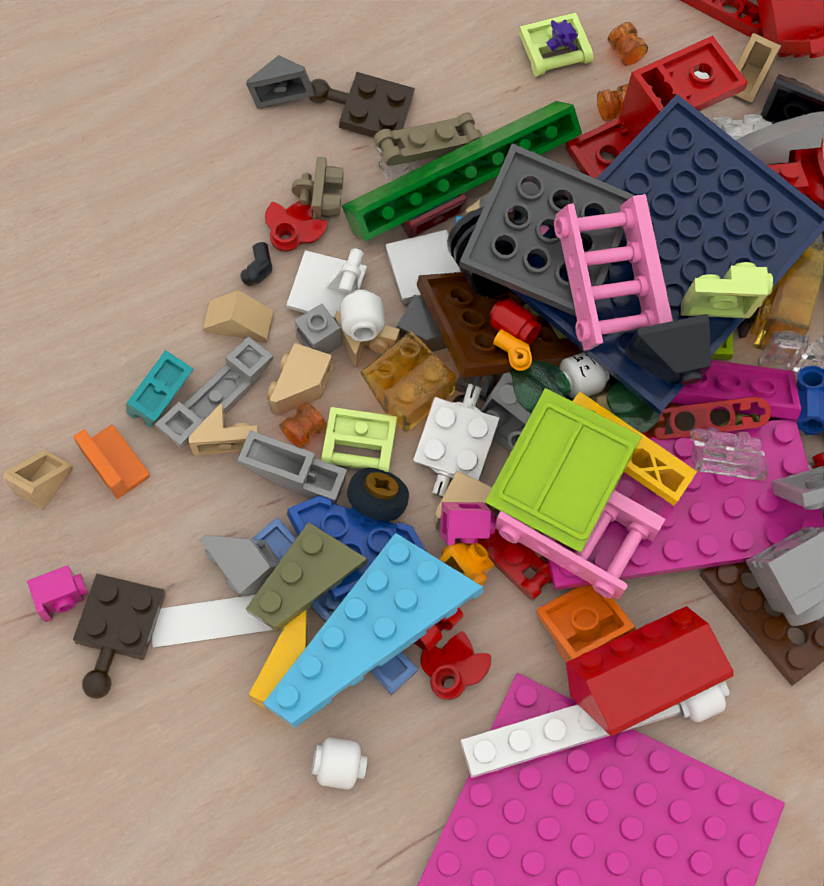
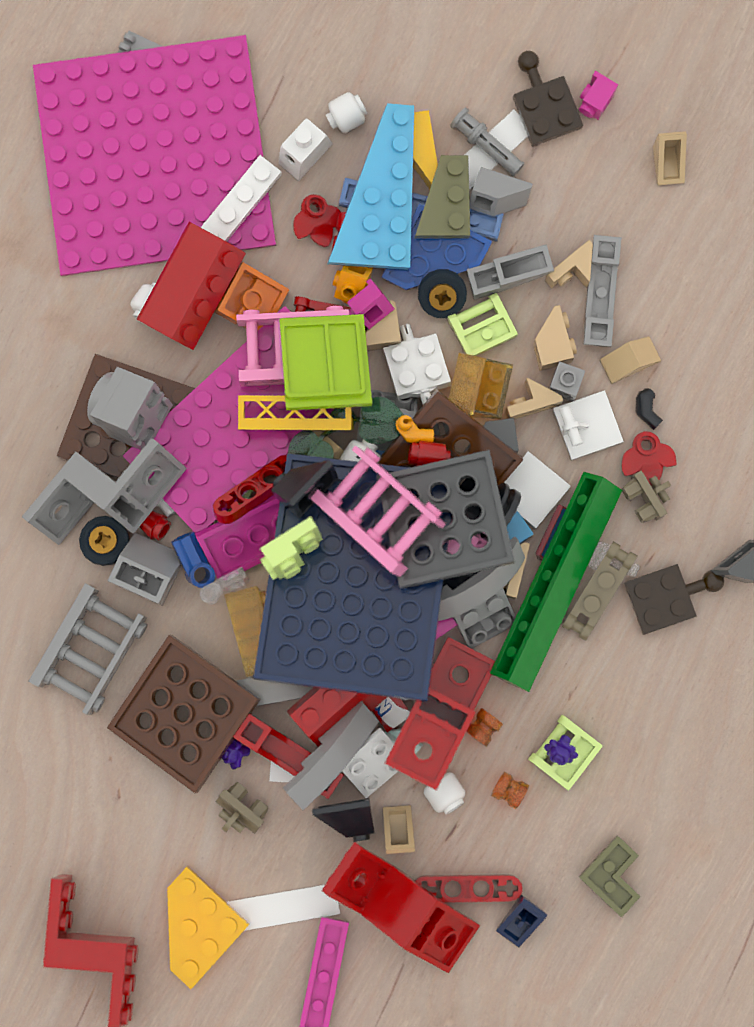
camera: 150 degrees right, 15 degrees up
(112, 460) = (634, 203): orange panel -> none
(158, 388) = (640, 267): teal hinge -> none
(213, 643) = (474, 136): none -> light grey pin
(305, 423) = (527, 309): clear orange wheel -> none
(362, 315) = (540, 400): white head -> none
(413, 751) = (304, 147): none -> white torso
(728, 453) = (222, 455): clear plate -> none

